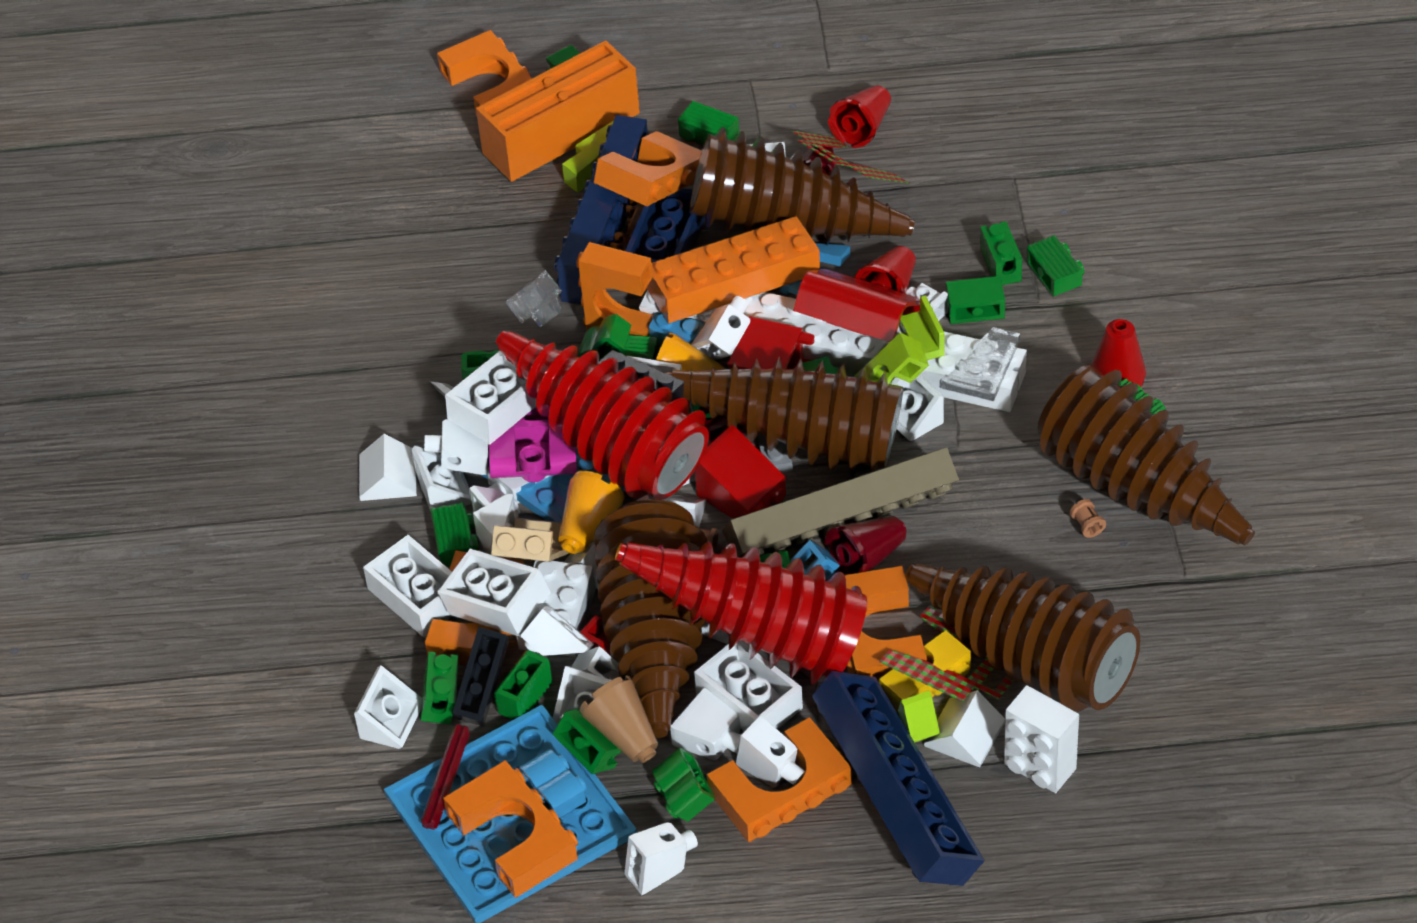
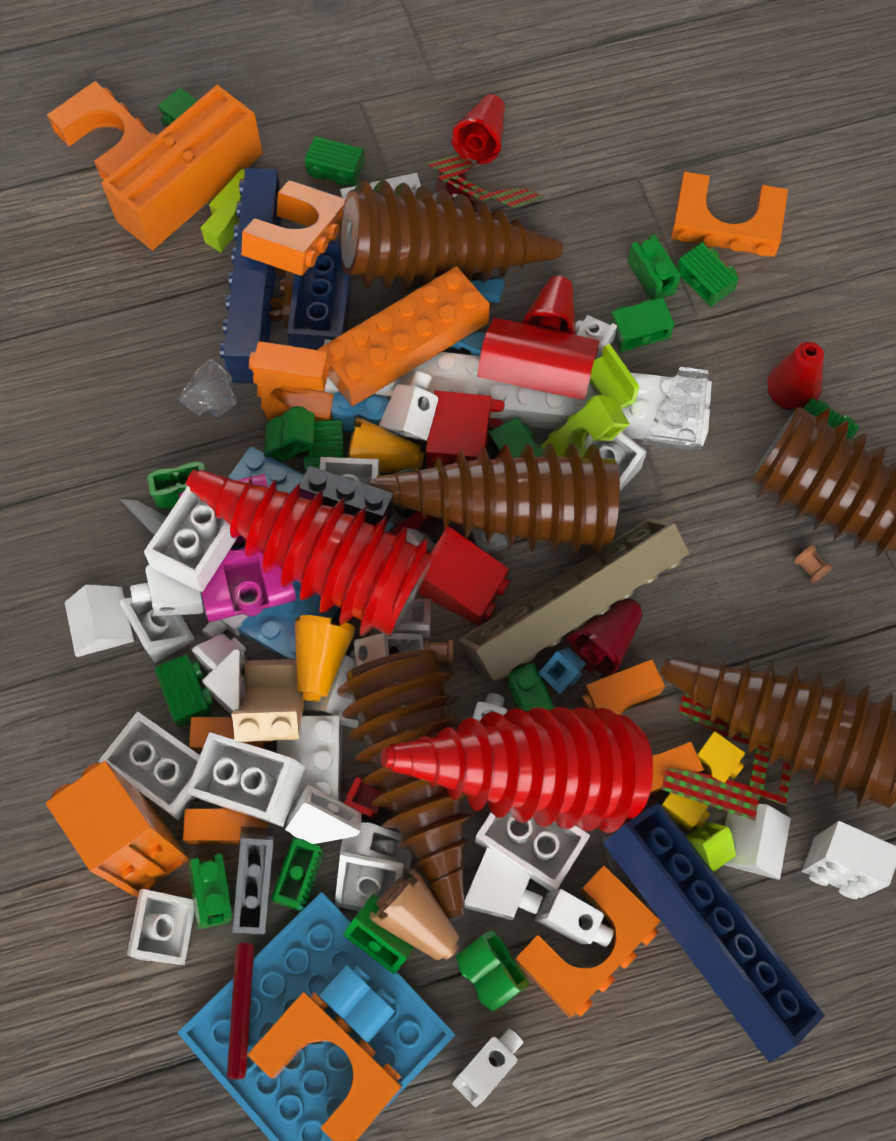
camera: 15 degrees left, 20 degrees up
(374, 596) = (116, 830): none -> orange brick
(1116, 238) = (697, 225): none -> orange arch

